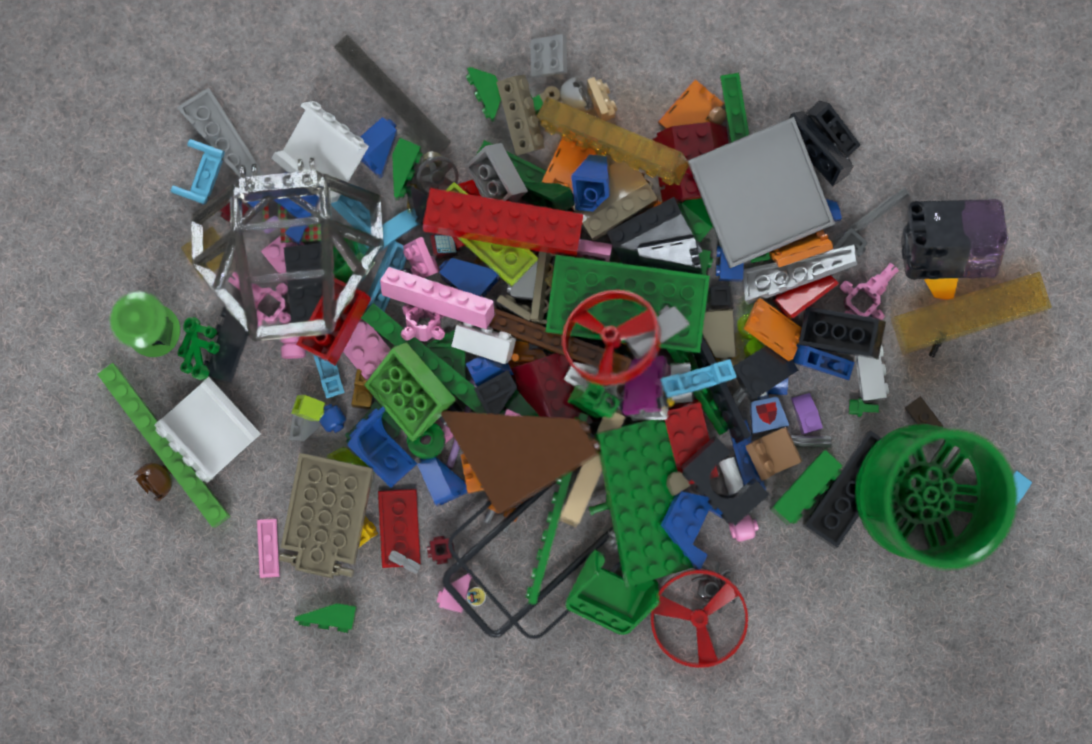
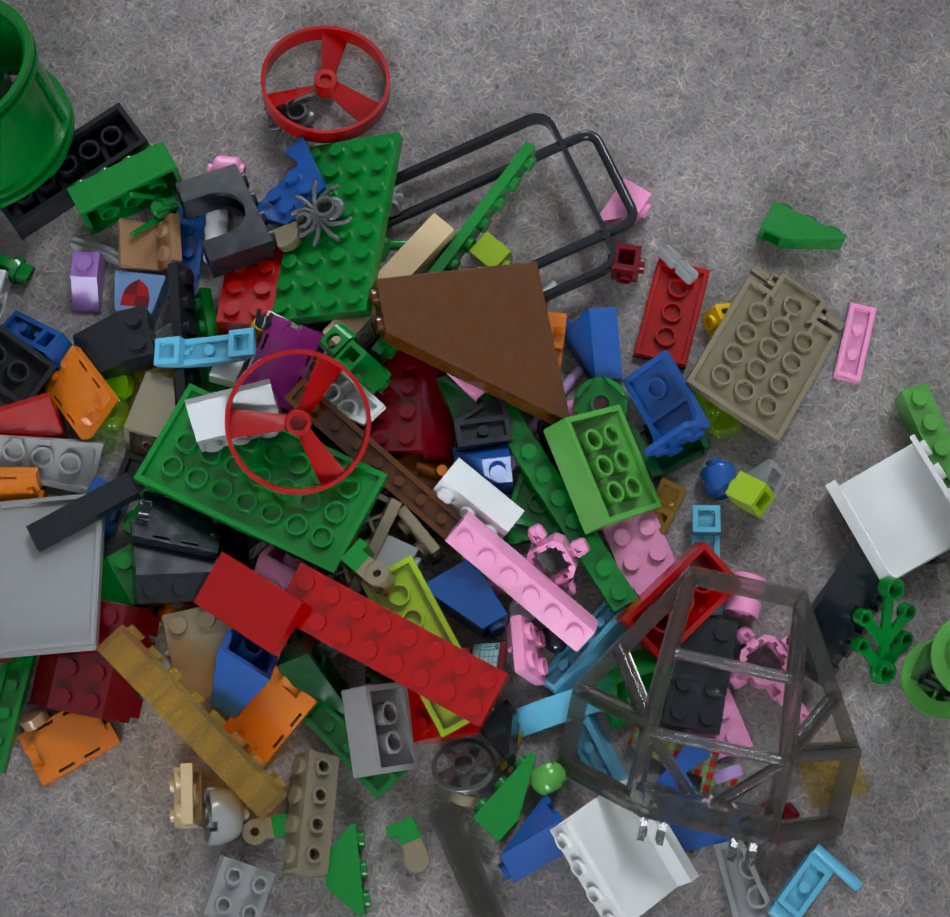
camera: 160 degrees left, 10 degrees down
(381, 186) = (548, 778): none -> bright green piece
(453, 120) = (416, 855): none -> leg
(476, 596) = (600, 197): tile -> none
(532, 516) = (490, 252): none -> lime brick
(535, 264) = (372, 573): none -> leg
(600, 217) = (250, 604): none -> red tile
(606, 599) = (430, 134): green windscreen -> none
(658, 502) = (320, 213): none -> dark grey animal
(736, 248) = (83, 512): none -> black tile
(776, 484) = (160, 209): none -> green plant

